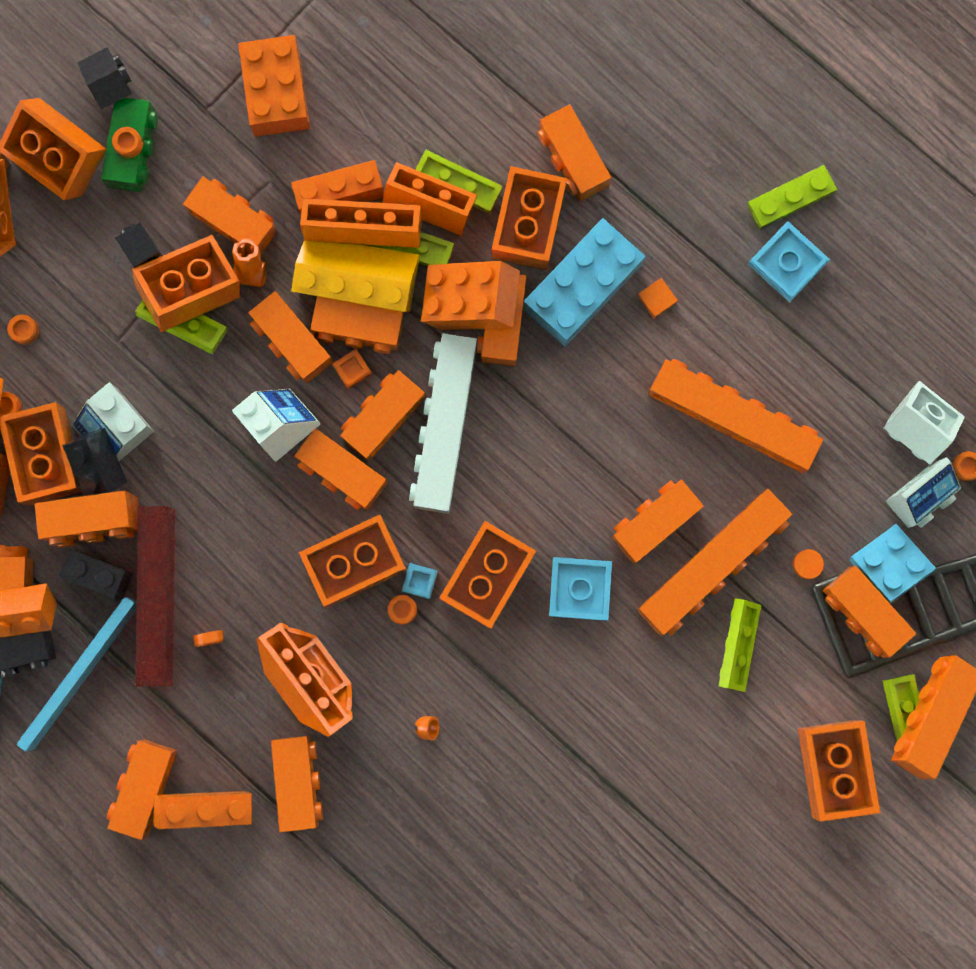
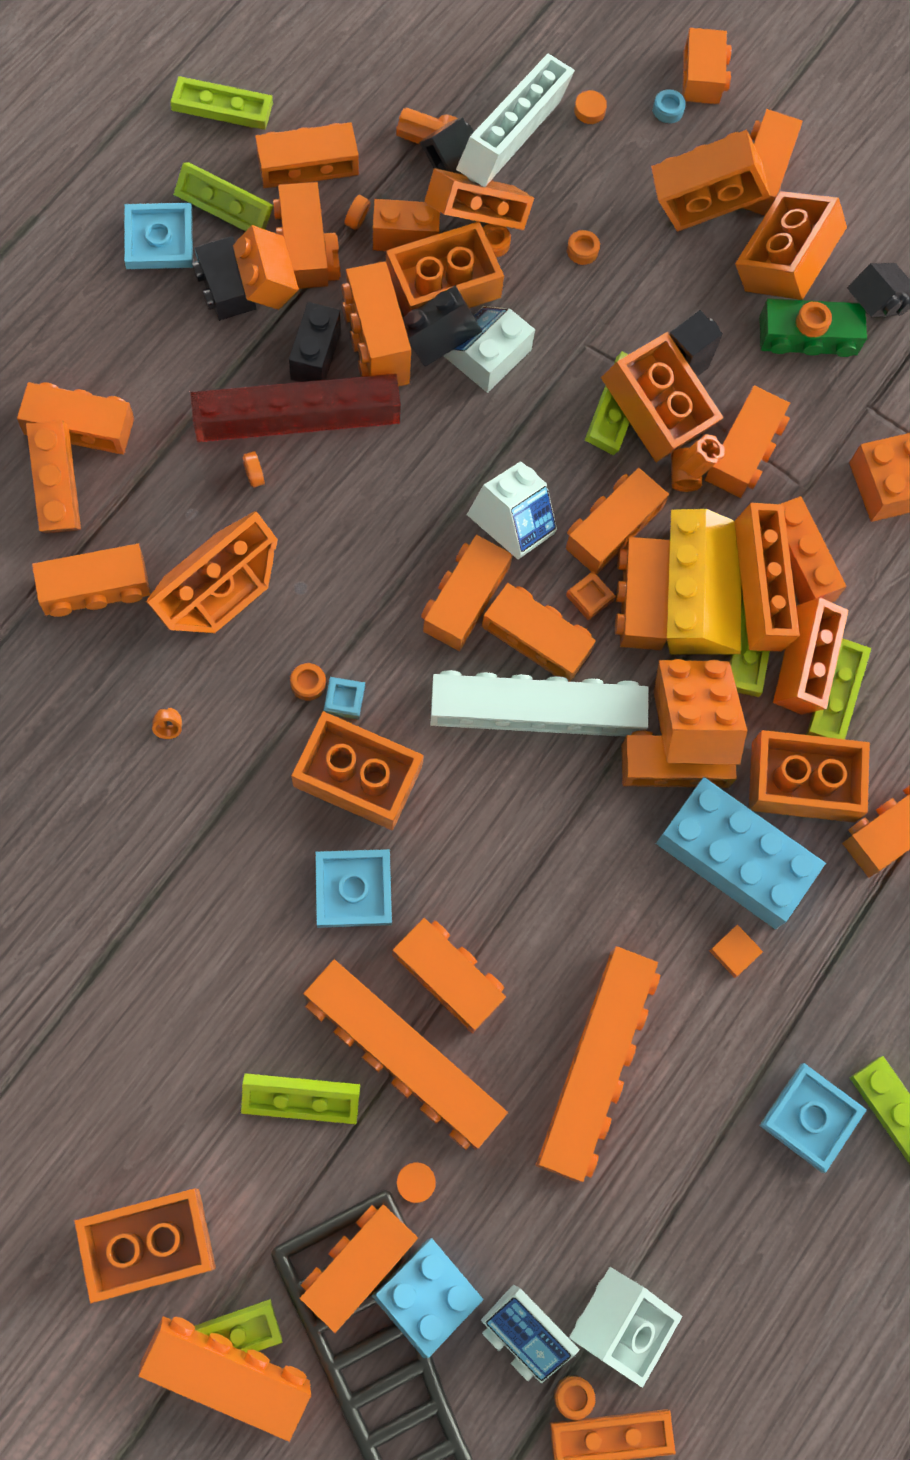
camera: 75 degrees right, 10 degrees down
(78, 674) = (198, 337): medium azure tile -> none
(352, 561) = (358, 614): orange brick -> none

